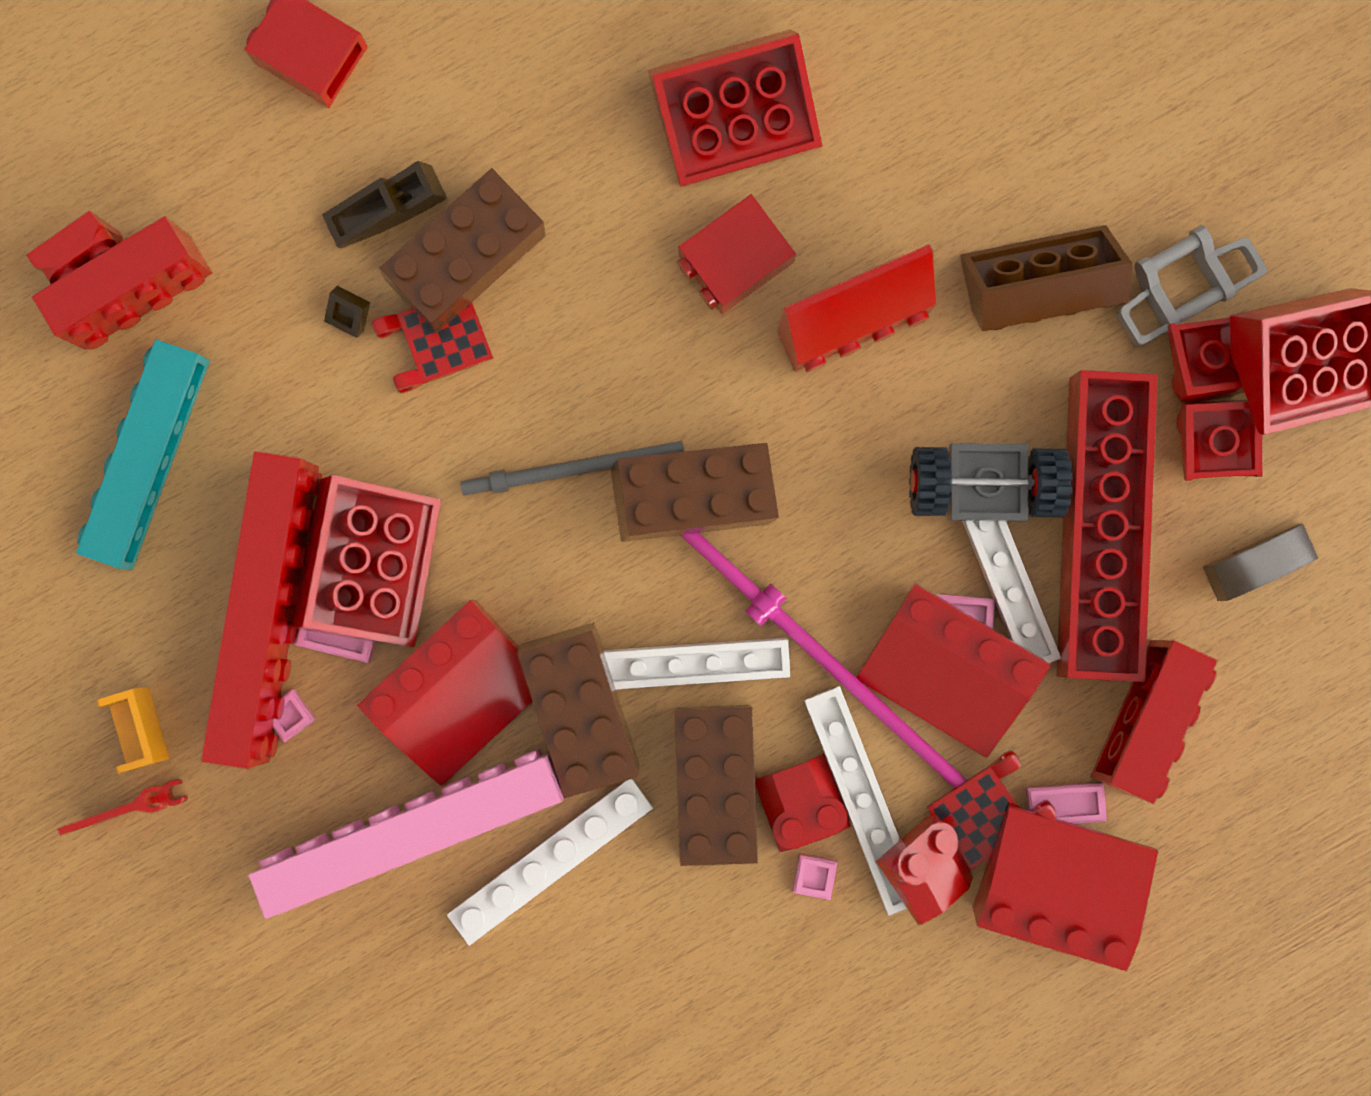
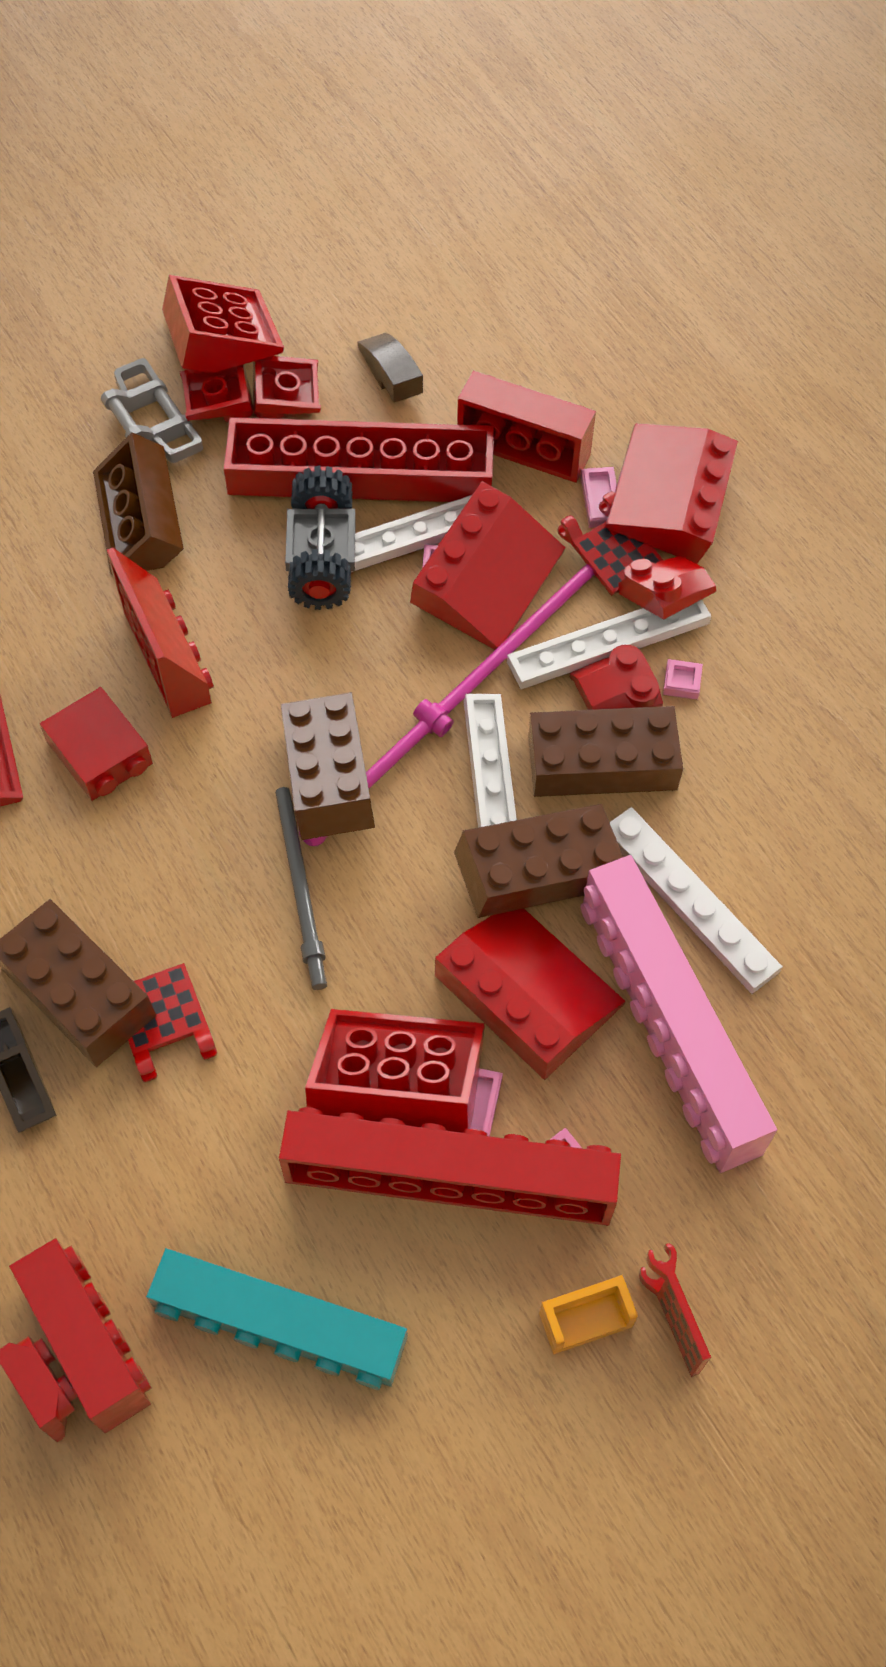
camera: 95 degrees left, 25 degrees down
(346, 311) = (127, 1101): dark brown plate -> none

